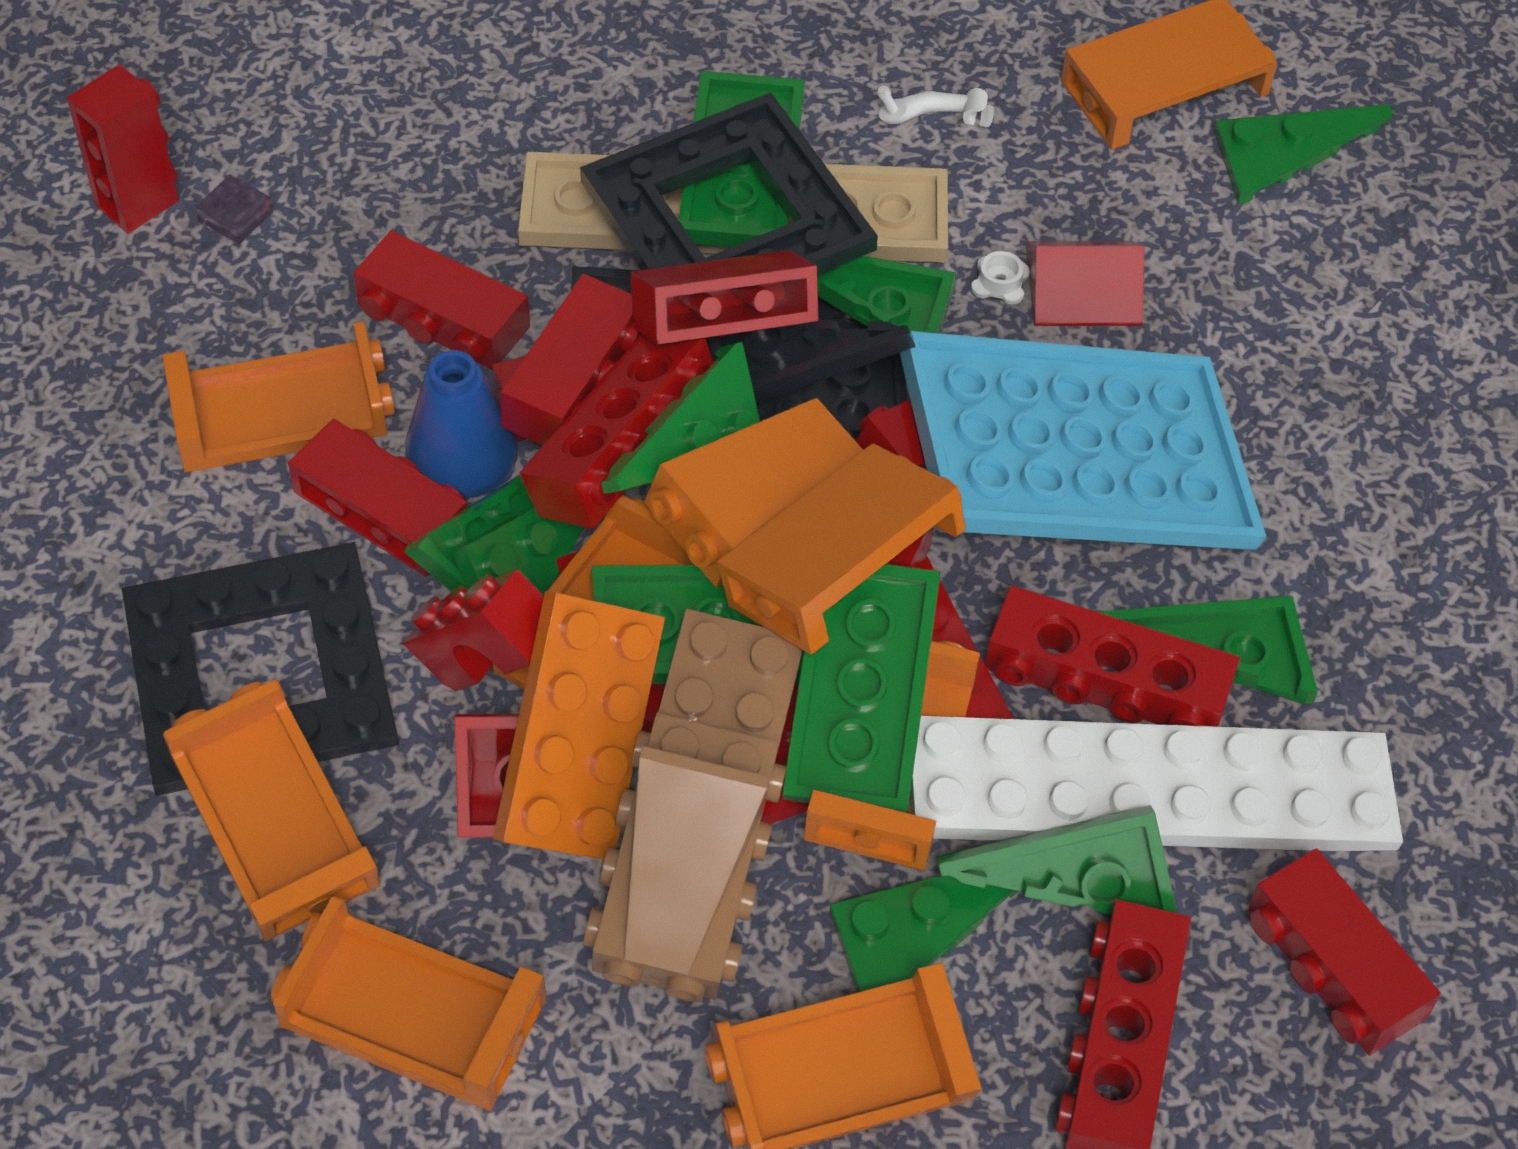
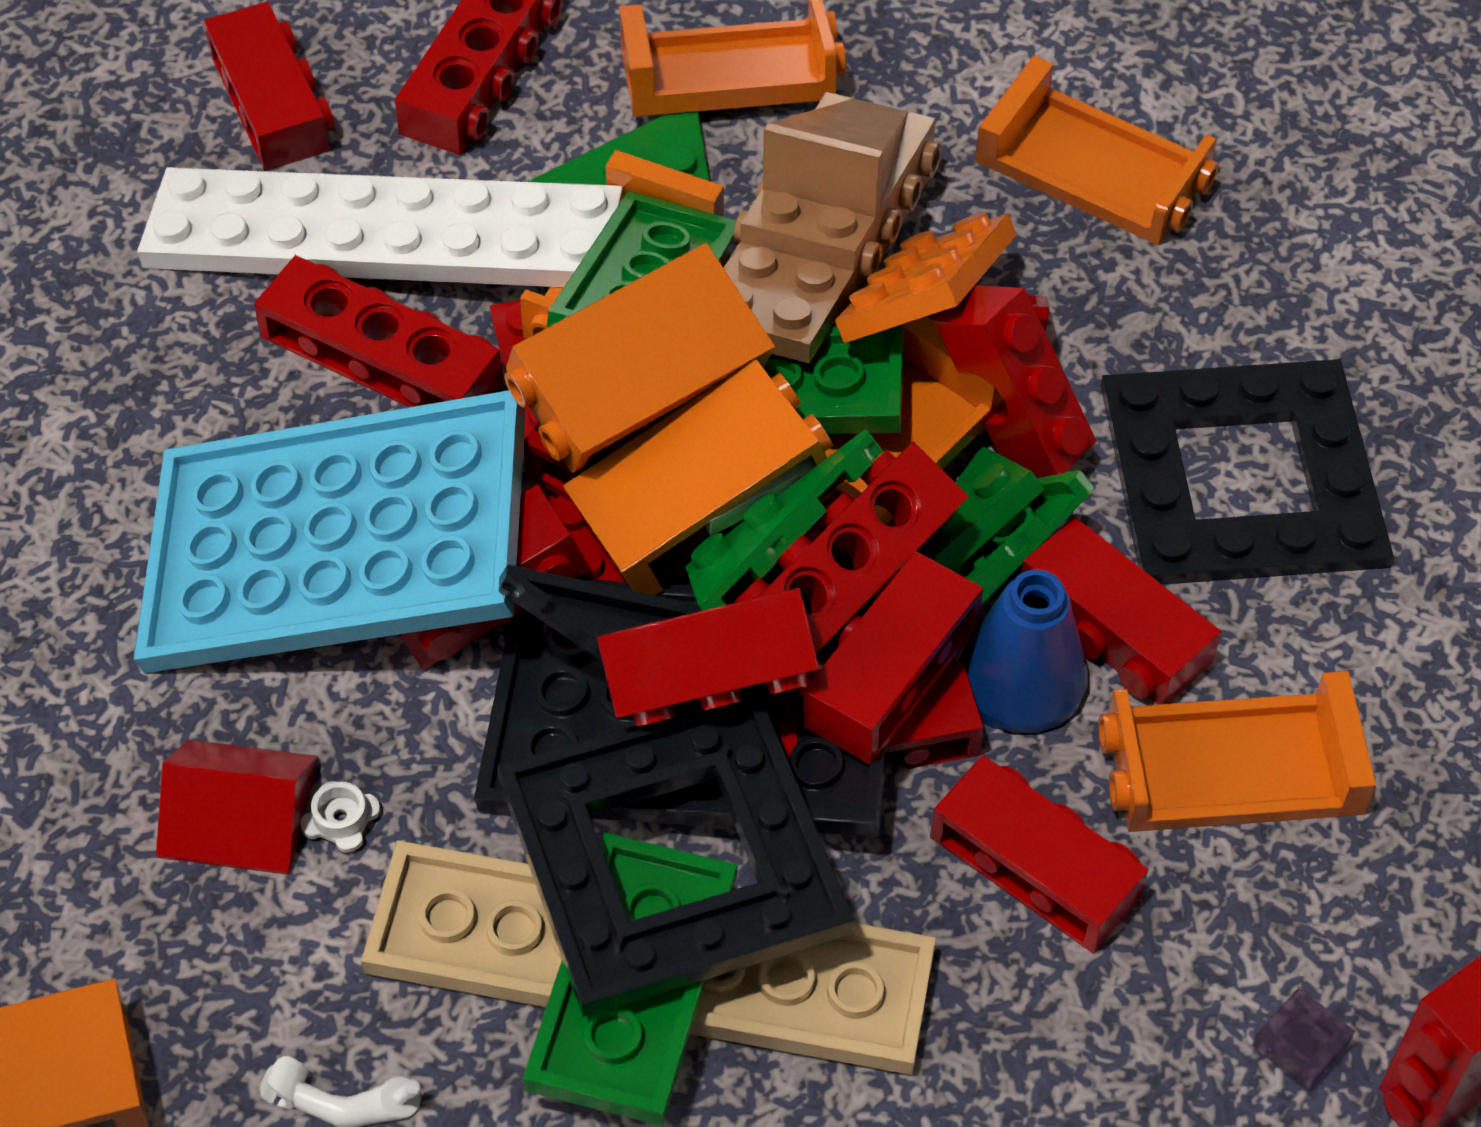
camera: 170 degrees left, 0 degrees up
(269, 808) = (1221, 300): orange panel -> none
(889, 292) = (486, 724): green wing -> none
(1076, 863) = (494, 163): green wing -> none
(1258, 630) = (244, 360): green wing -> none

